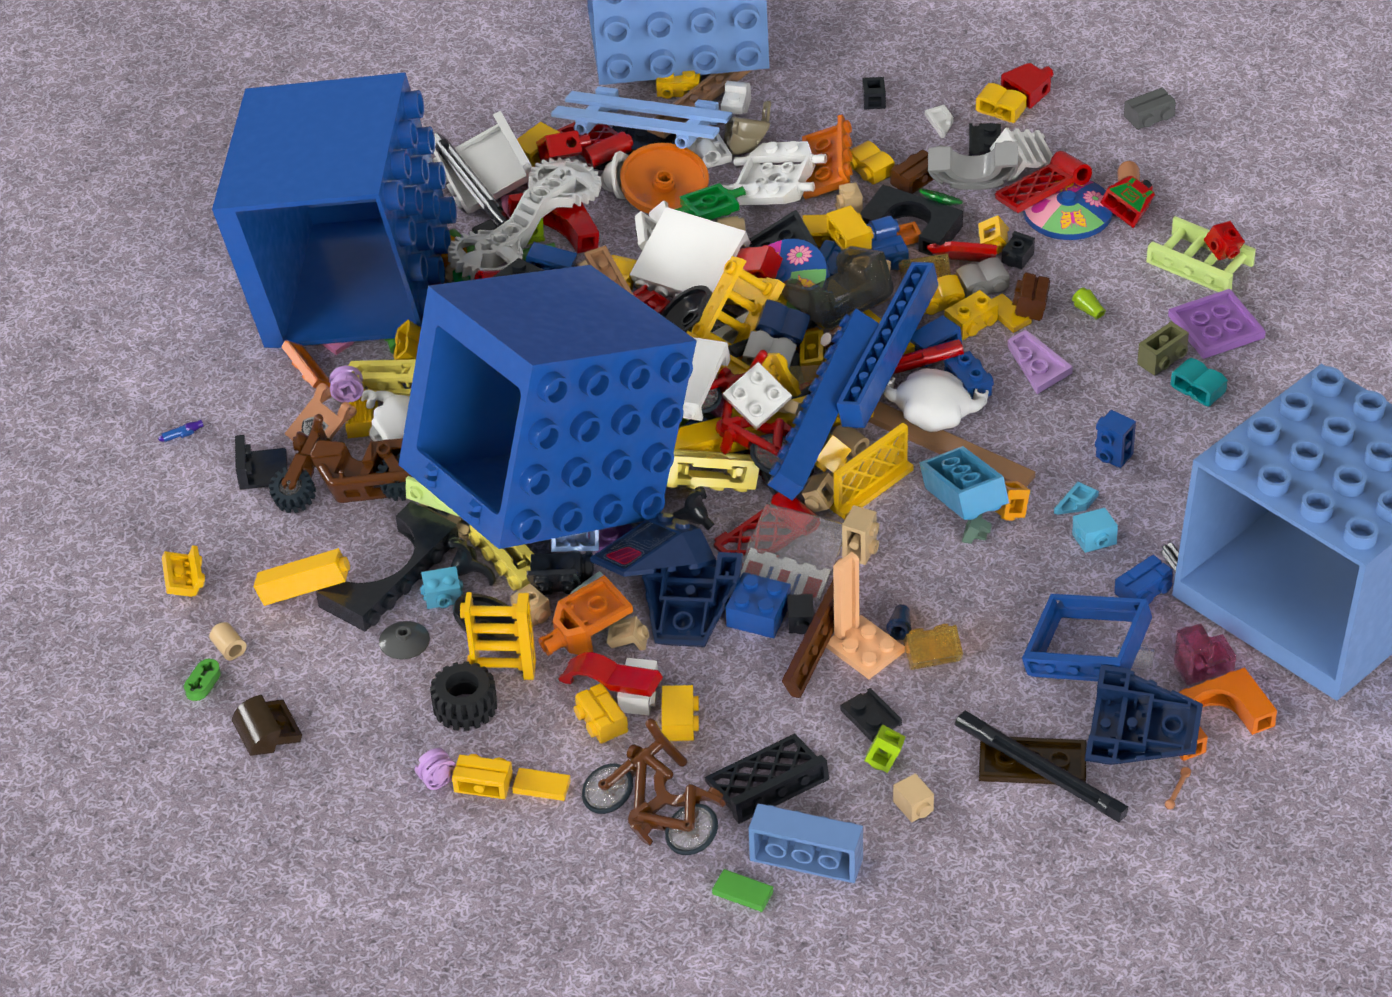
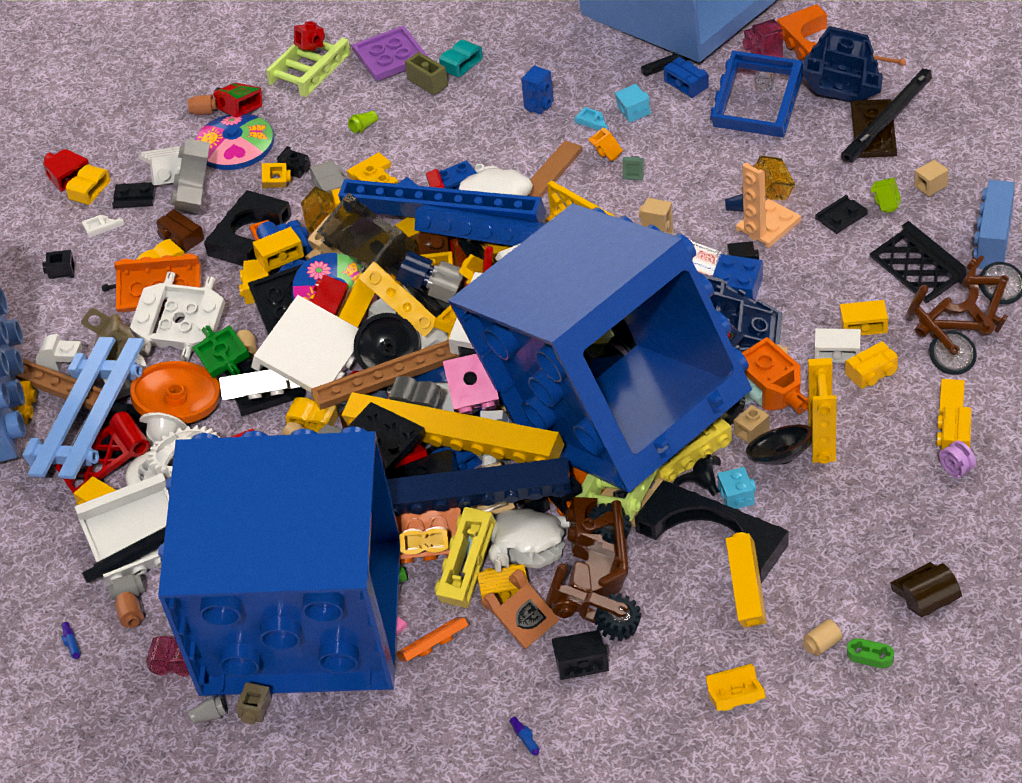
camera: 90 degrees left, 0 degrees up
(345, 384) = (487, 577): lavender wheel -> none
(411, 644) = (796, 521): dark grey dish -> none
(467, 710) = (865, 464): black tyre -> none
(555, 145) = (126, 463): red torso -> none
(612, 675) = (845, 341): red piece -> none
(811, 646) = (769, 239): reddish brown plate -> none
(849, 195) = (217, 267): tan brick -> none
(940, 197) = (219, 211): green dish -> none
(964, 250) = (301, 183): red tile -> none
(964, 483) = (599, 160): dark azure brick -> none
(1031, 296) = (358, 147): reddish brown brick -> none
(1038, 361) = (433, 145): lavender wing -> none
(1062, 167) = (200, 130): red piece -> none
(1149, 108) = (112, 96): dark grey brick -> none

